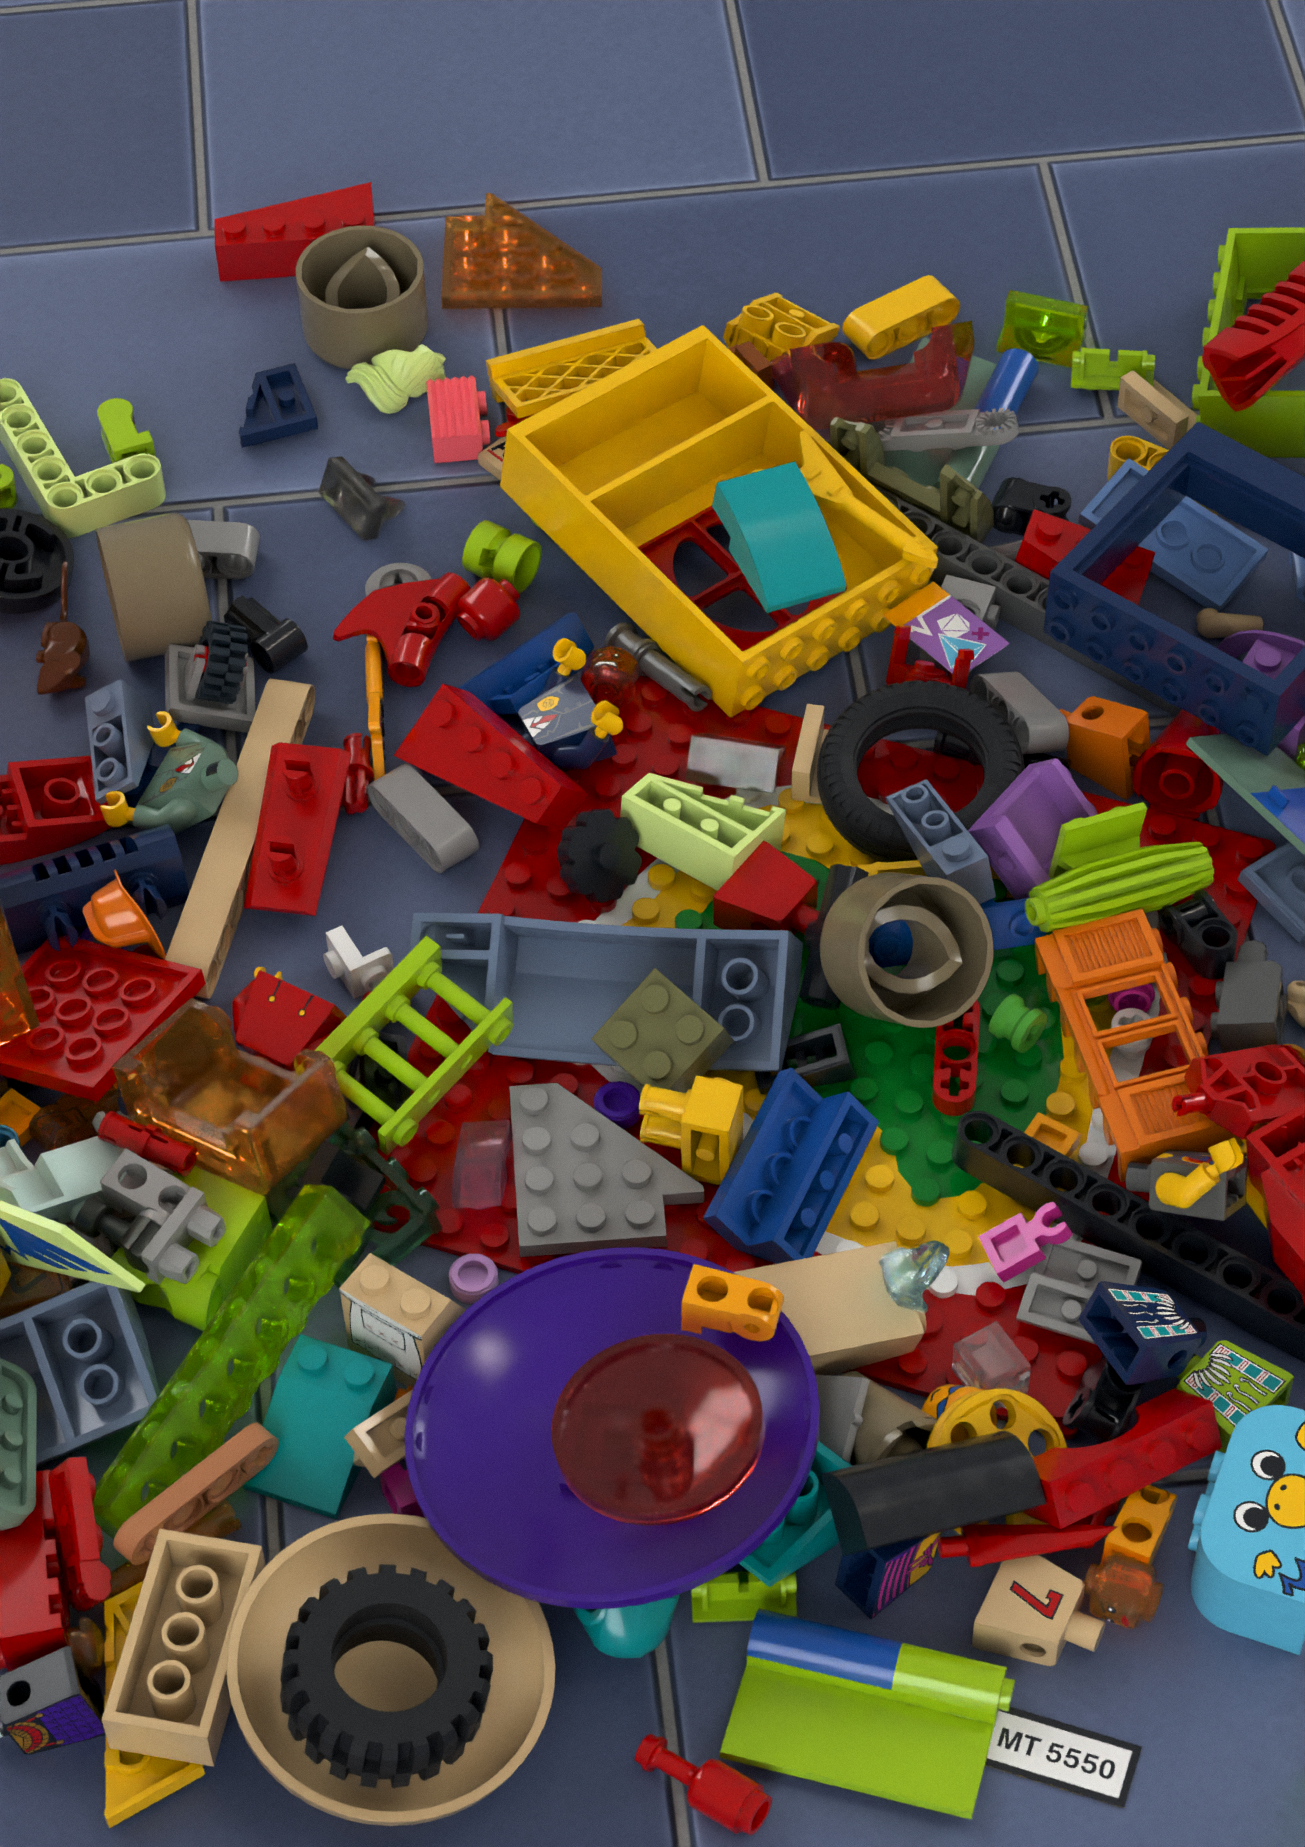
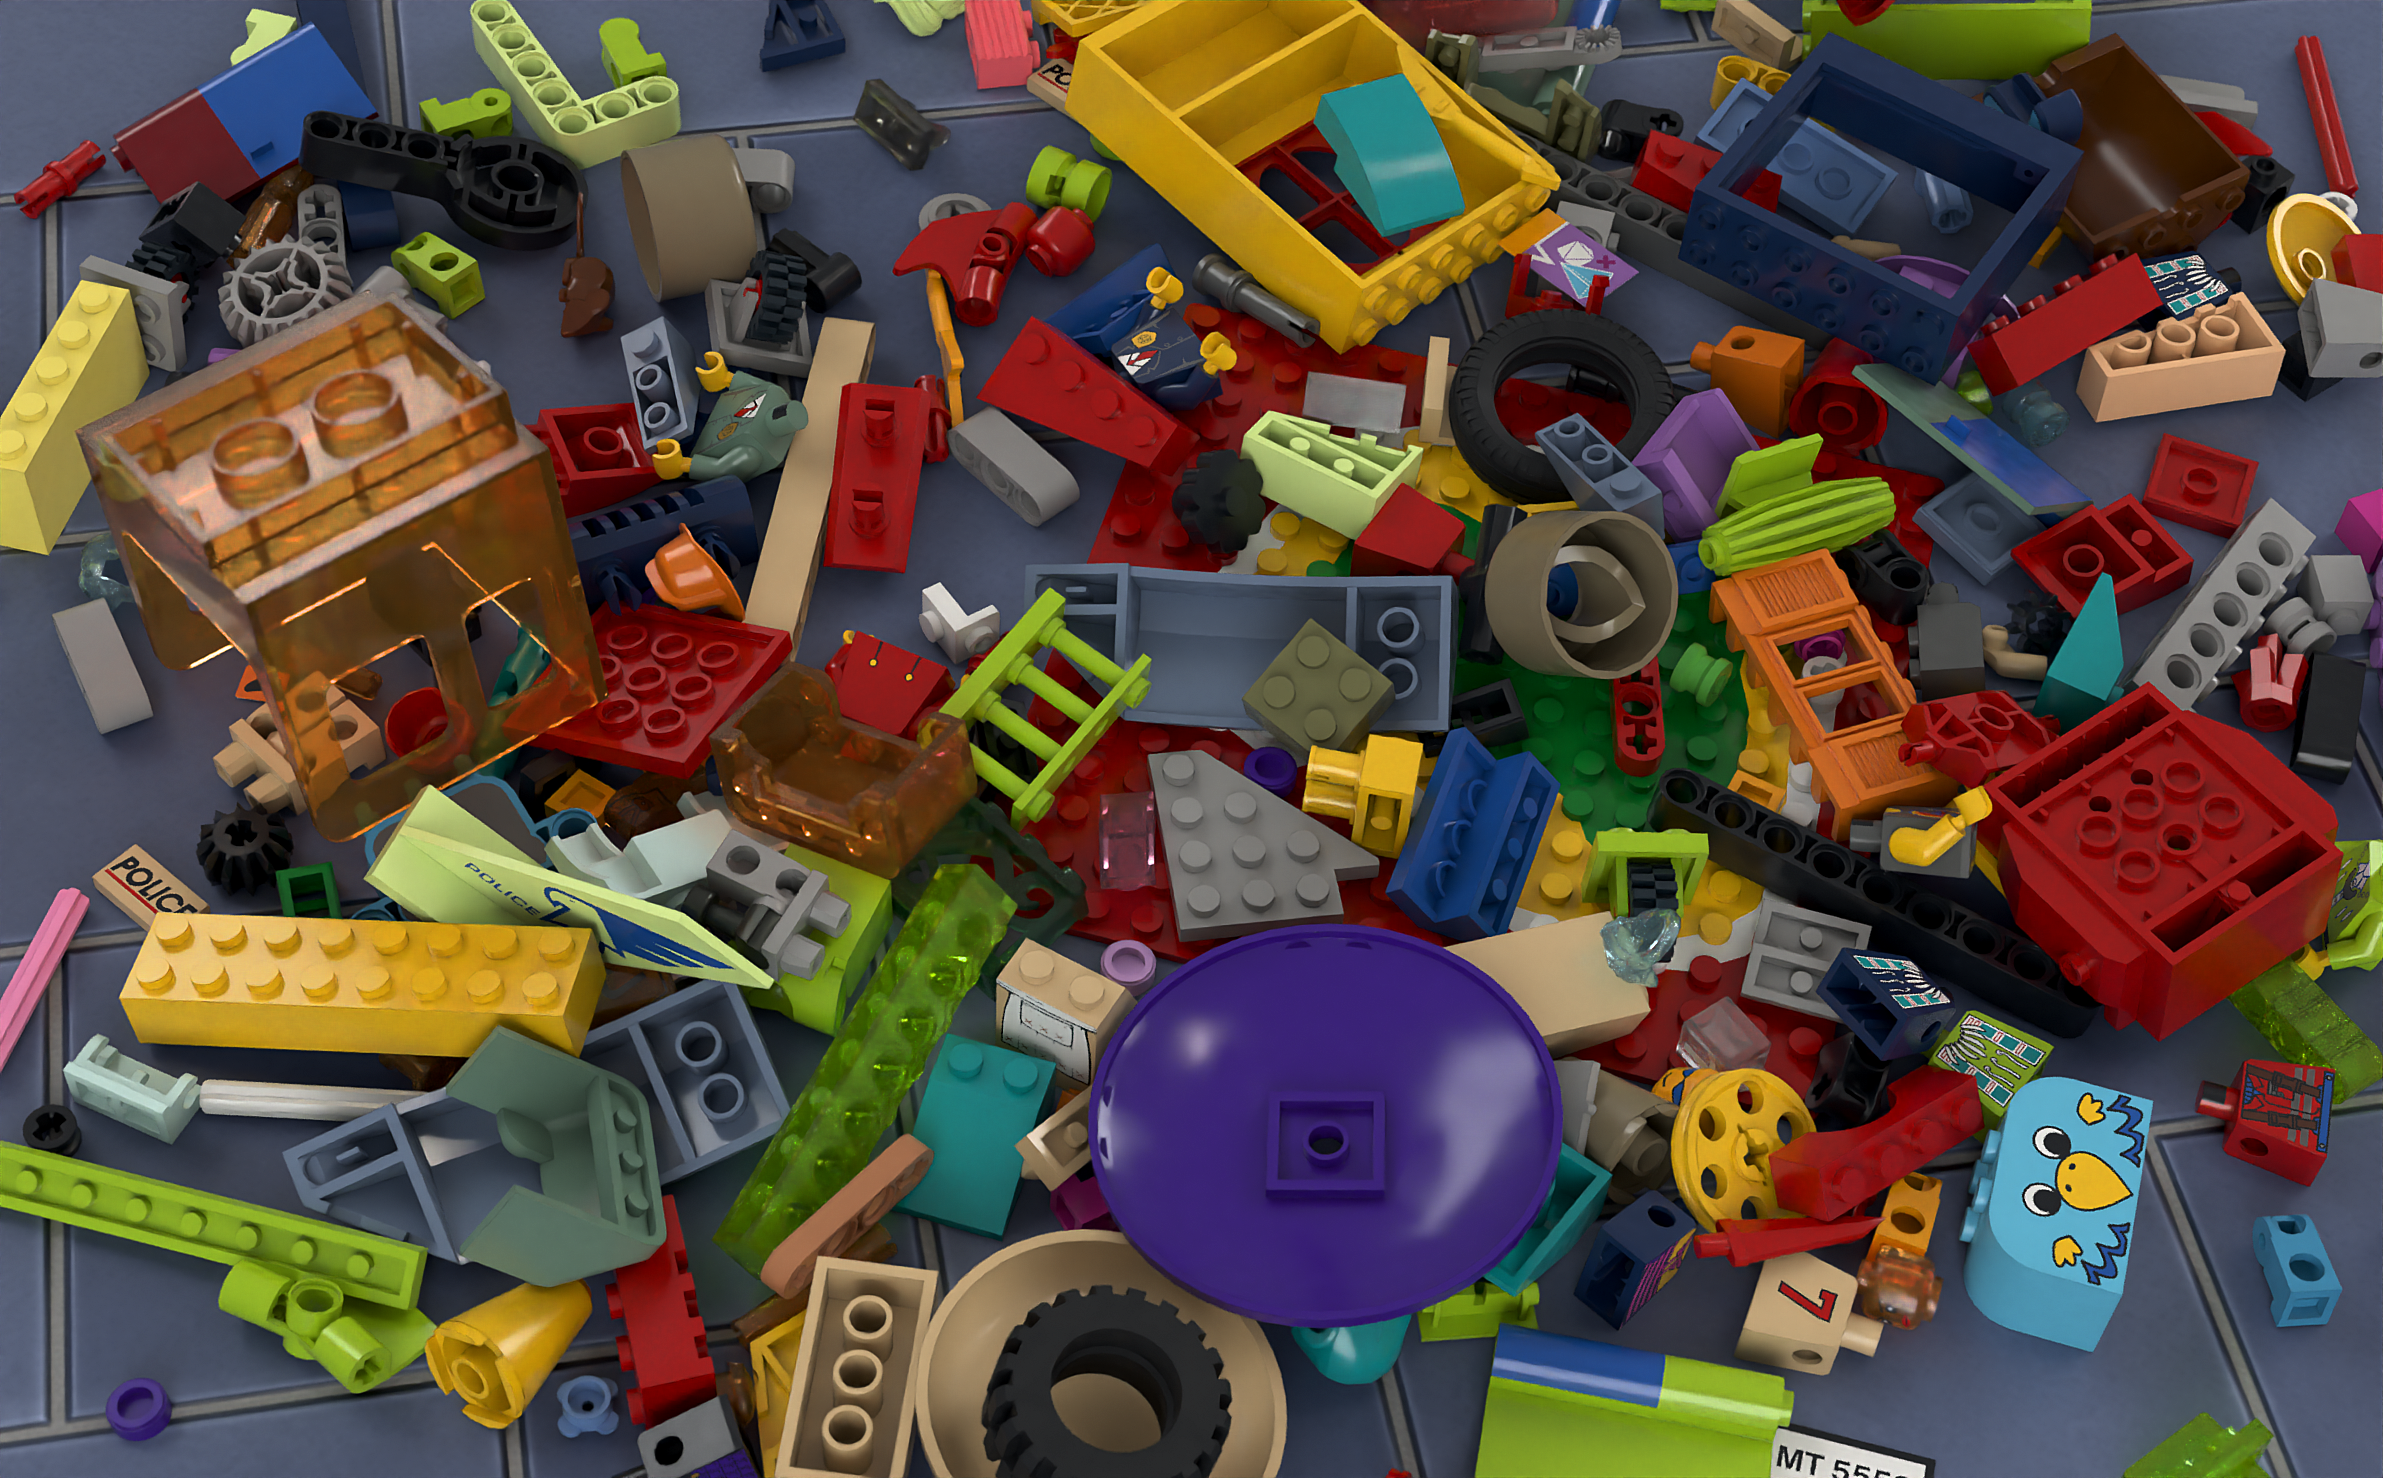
camera: 10 degrees left, 0 degrees up
(78, 1534) = (717, 1266): red hinge -> none
(148, 1143) = (753, 821): red pin -> none
(348, 1177) = (969, 845): black panel -> none
(611, 676) = (1209, 307): clear red head -> none
(658, 1429) = (1389, 1122): clear red dish -> none
(730, 1304) = (1450, 982): light orange leg -> none
(931, 1491) = (1689, 1183): black brick -> none
(938, 1209) = (1644, 871): none -> lime plate
(1018, 1243) = (1734, 913): dark pink plate -> none
(1029, 713) = (1684, 354): light grey beam -> none

